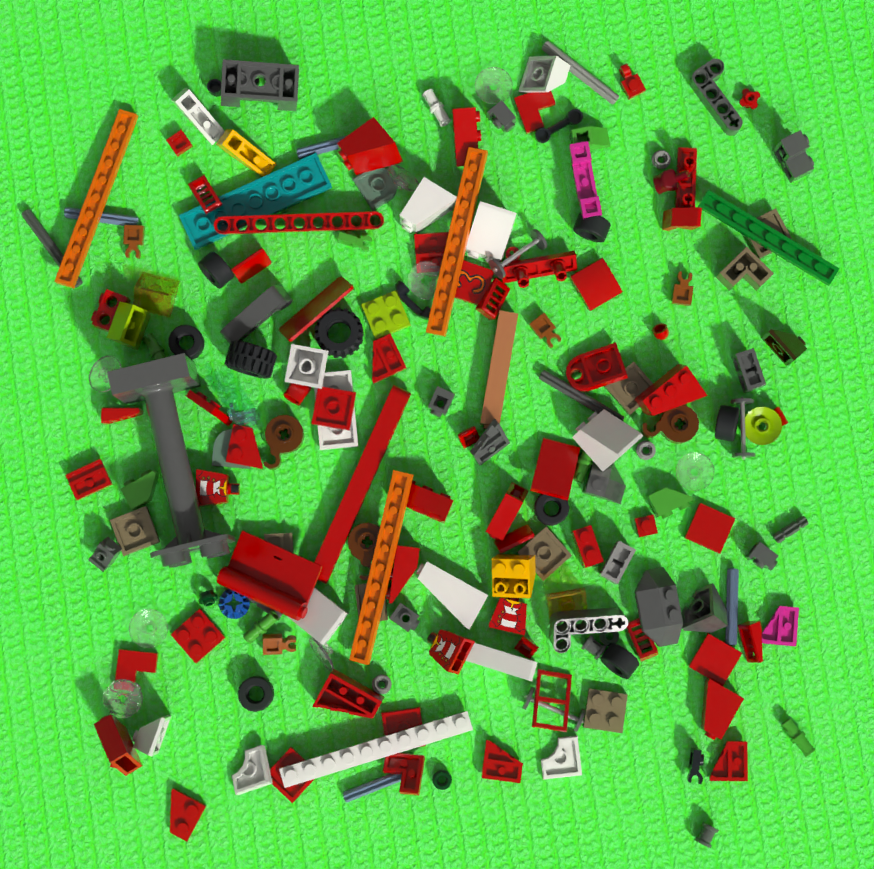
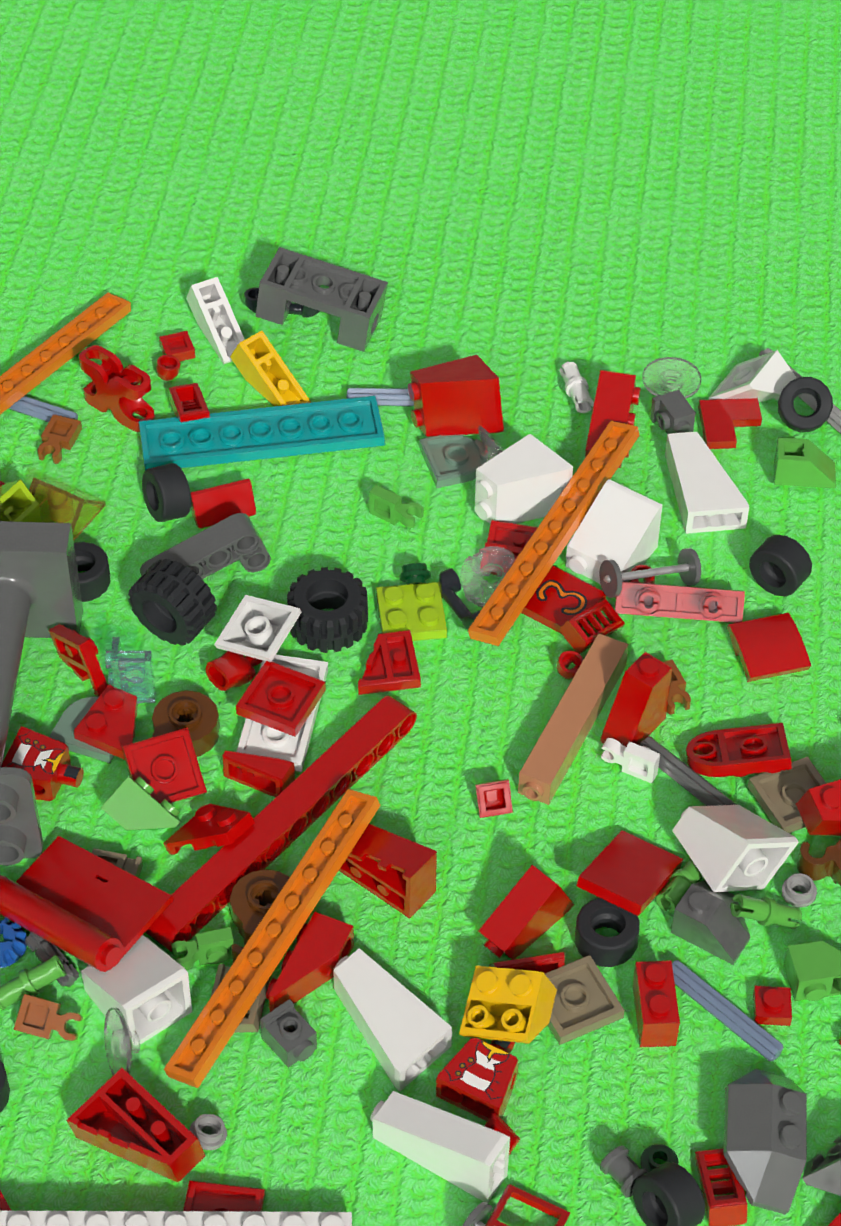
camera: 15 degrees right, 35 degrees down
(157, 196) = (116, 387): none -> red piece
(180, 159) = (167, 367): none -> red hinge
(280, 504) = (137, 809): none -> bright green slope
(284, 472) = (166, 765): none -> red tile
(289, 219) = (304, 453): red beam -> none
(315, 308) = (296, 572): piece -> none
(322, 503) = (210, 827): none -> red wing
(343, 457) = (259, 772): none -> red slope
(349, 577) = (208, 948): none -> bright green plate
(380, 289) = (414, 573): none -> dark green plate
(441, 395) = (462, 737): dark grey brick -> none
(450, 650) = (356, 1093): red torso -> none
(489, 443) = (527, 808): dark grey wing -> none
(491, 332) = (565, 660): none -> red hinge
(533, 174) = (702, 487): none -> white slope
(533, 358) = (639, 701): none -> red slope
(540, 389) = (635, 759): none -> white plate
(566, 601) = (593, 1084): clear yellow slope -> none
(573, 117) = (732, 448): black bar -> none
(579, 78) = (818, 391): none -> black tyre
(584, 179) = (783, 495): dark pink slope -> none
(612, 621) = (623, 1127): dark grey beam -> none
(617, 562) = (704, 1038): light grey brick -> none
(619, 535) = (726, 1012): none -> sand blue axle
(632, 474) = (766, 911): none -> bright green pin

